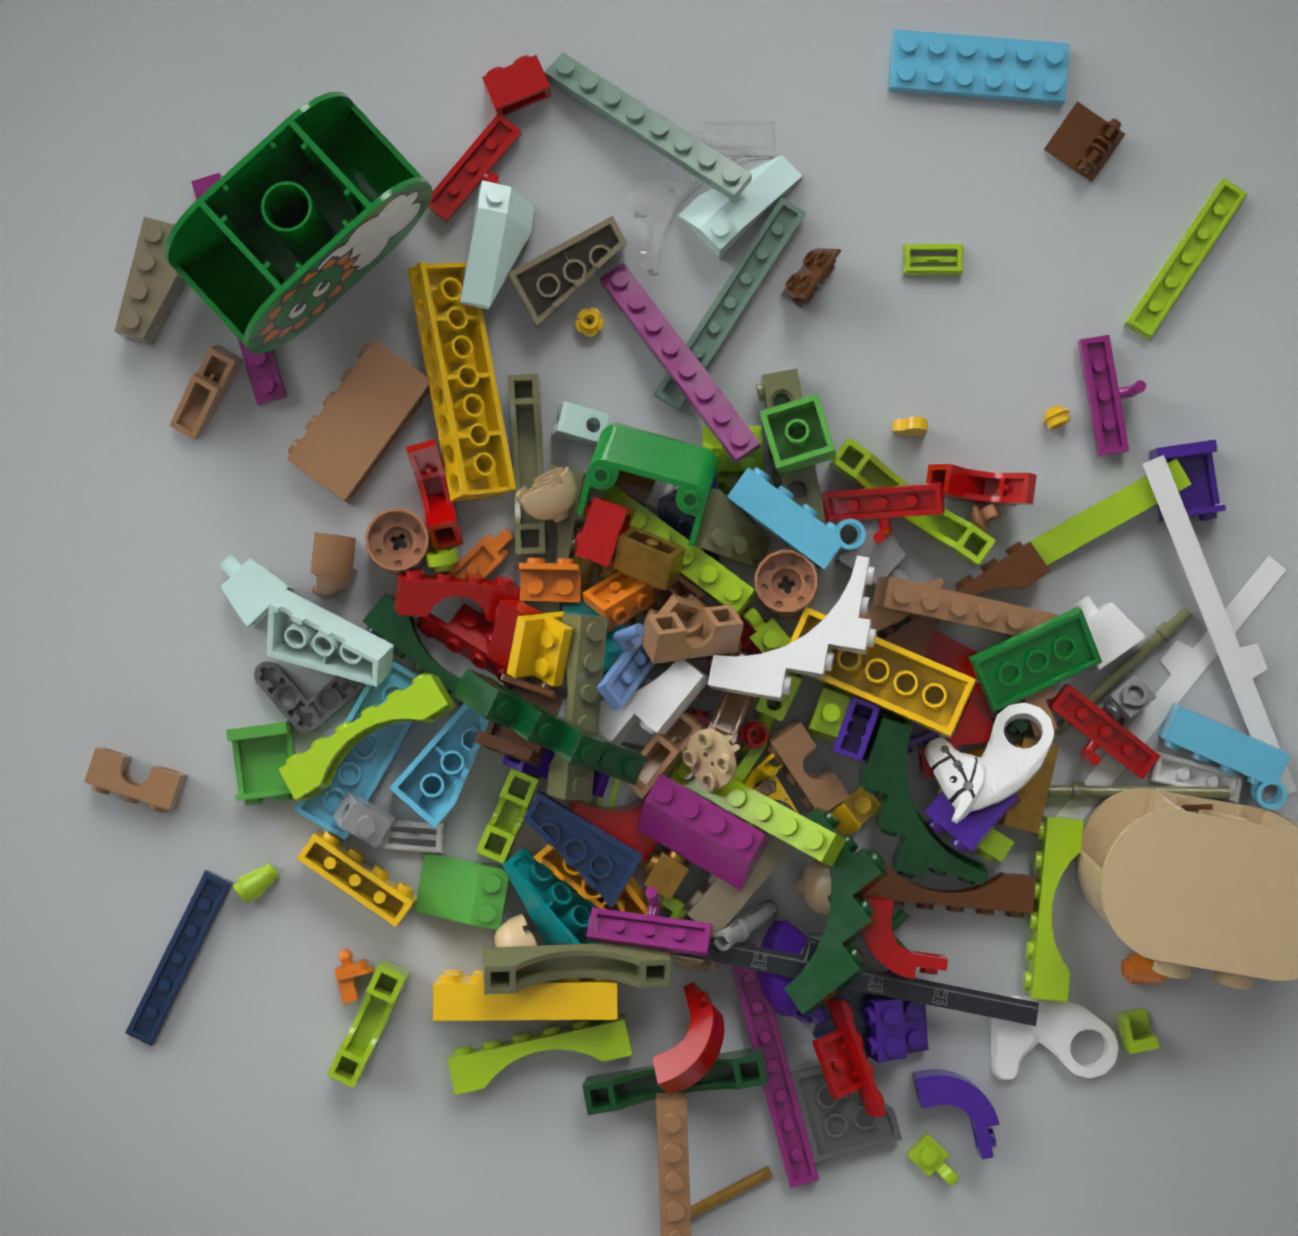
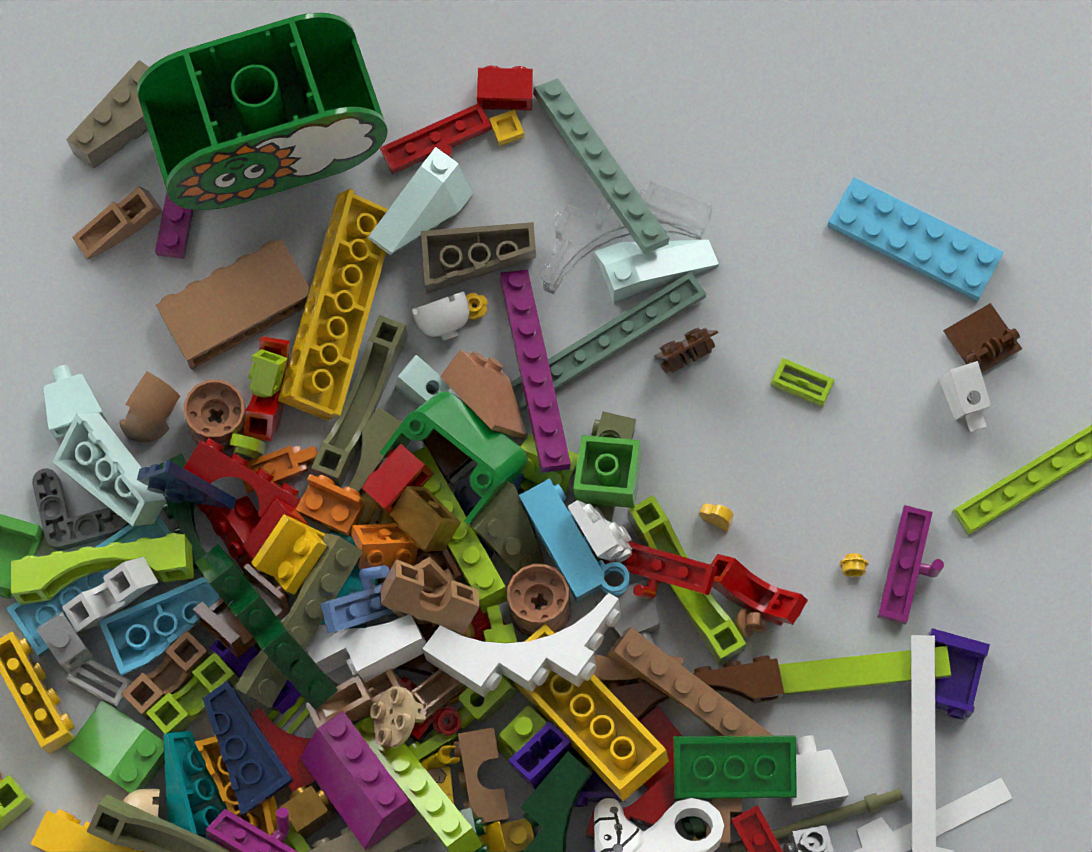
camera: 20 degrees right, 15 degrees down
(389, 761) = (119, 589): none -> white arch
(402, 632) = (182, 485): none -> dark blue wing
(428, 481) = (266, 373): none -> lime brick
(475, 807) = (169, 676): none -> medium nougat arch
(536, 125) = (506, 127): none -> yellow tile
(550, 495) = (365, 430): tan cylinder -> none
(565, 346) = (443, 316): none -> white cylinder
(646, 406) = (485, 391): none -> nougat slope
(827, 503) = (604, 536): none -> white plate
(1095, 205) = (964, 384): none -> white torso

